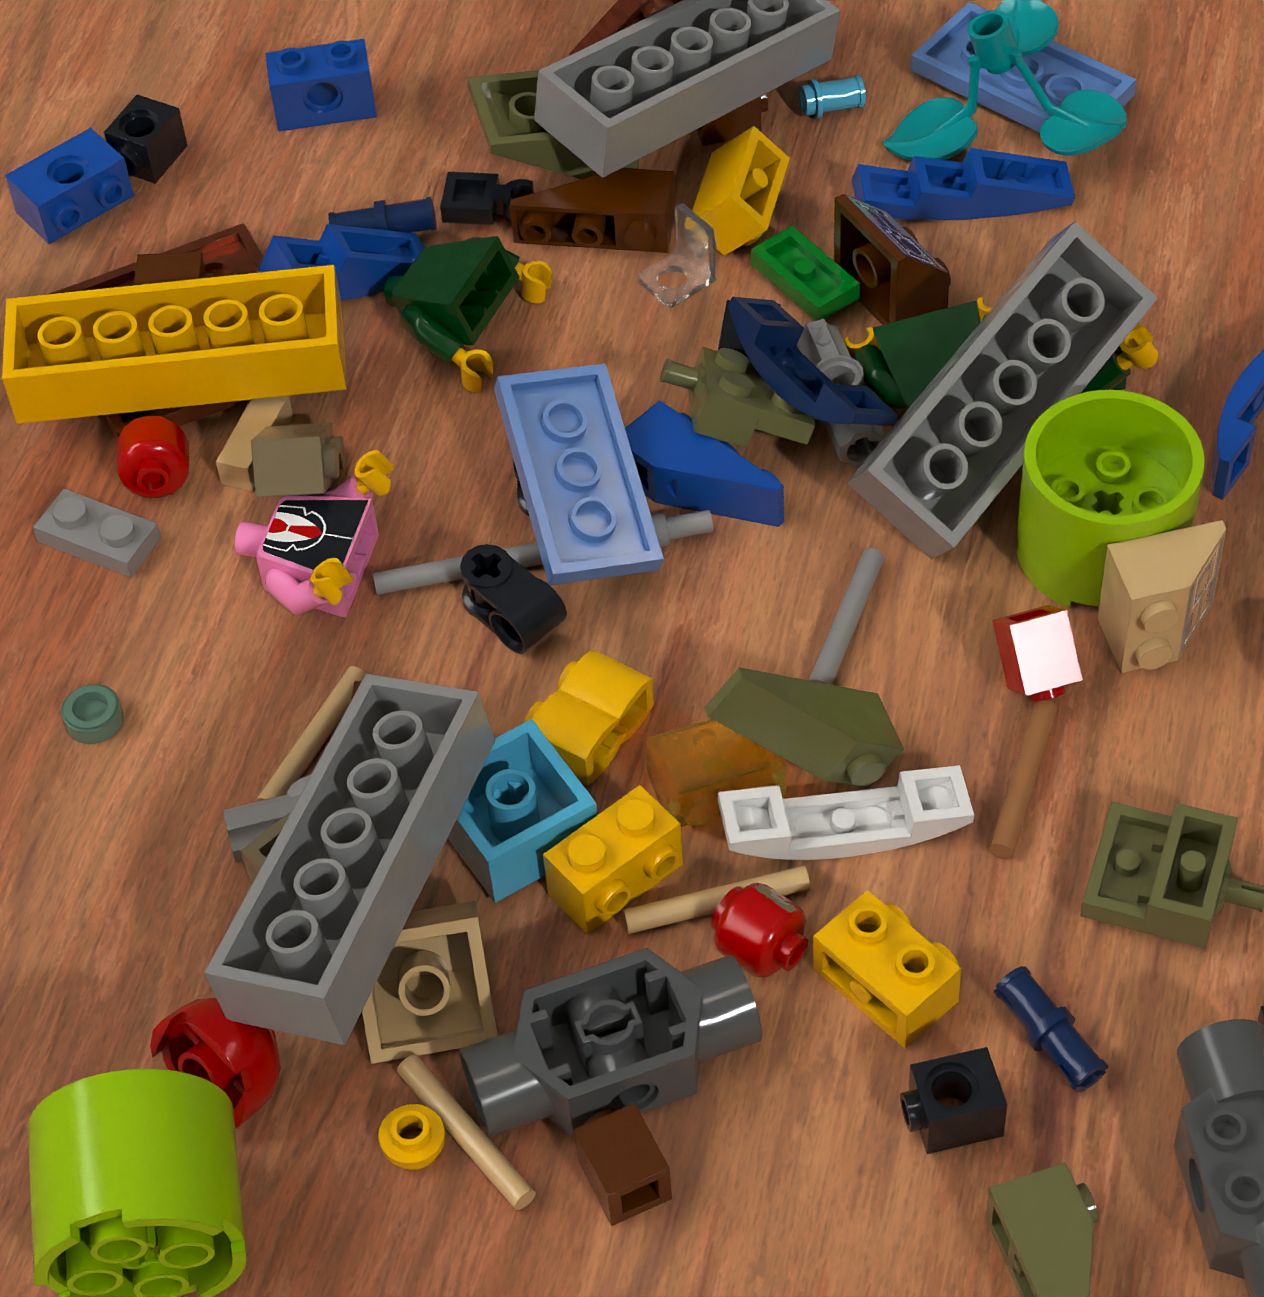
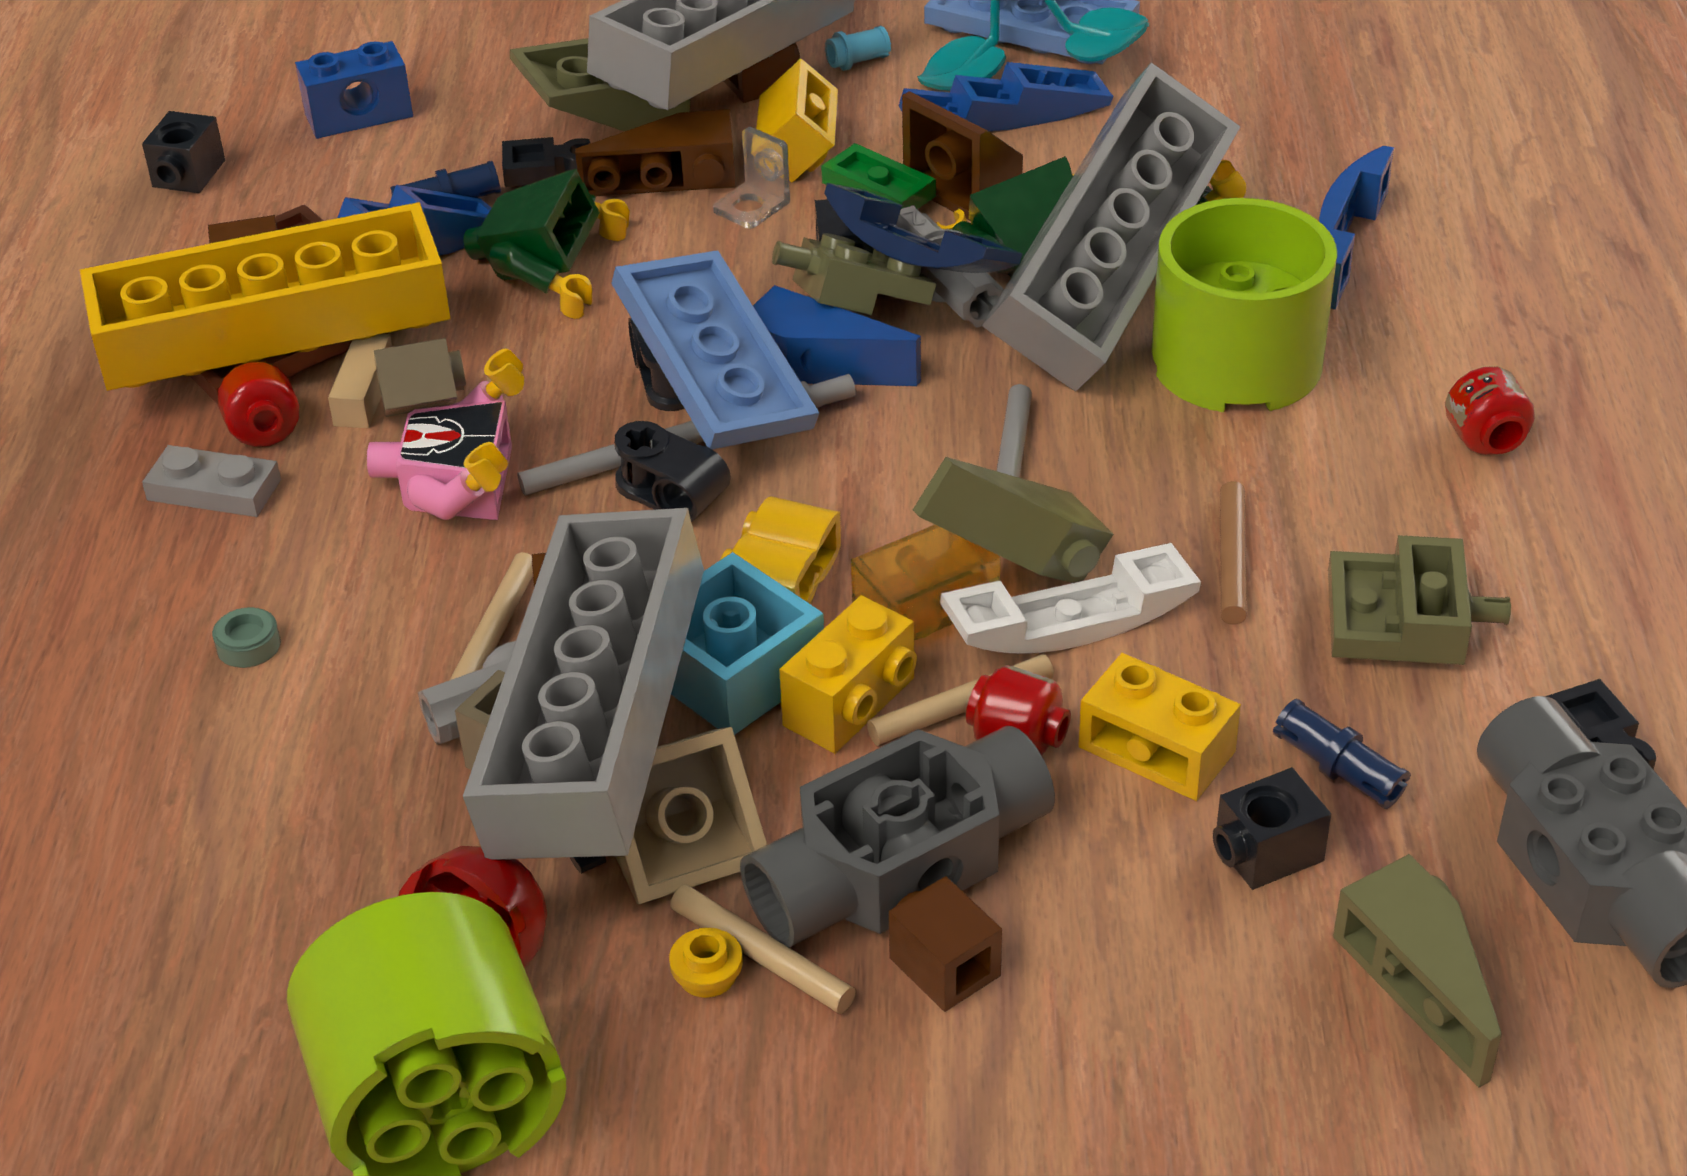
camera: 15 degrees left, 10 degrees down
(69, 185) = (112, 197): blue brick -> none
(1037, 652) = (1215, 439): brick -> none
(1158, 593) = (1311, 373): tan slope -> none

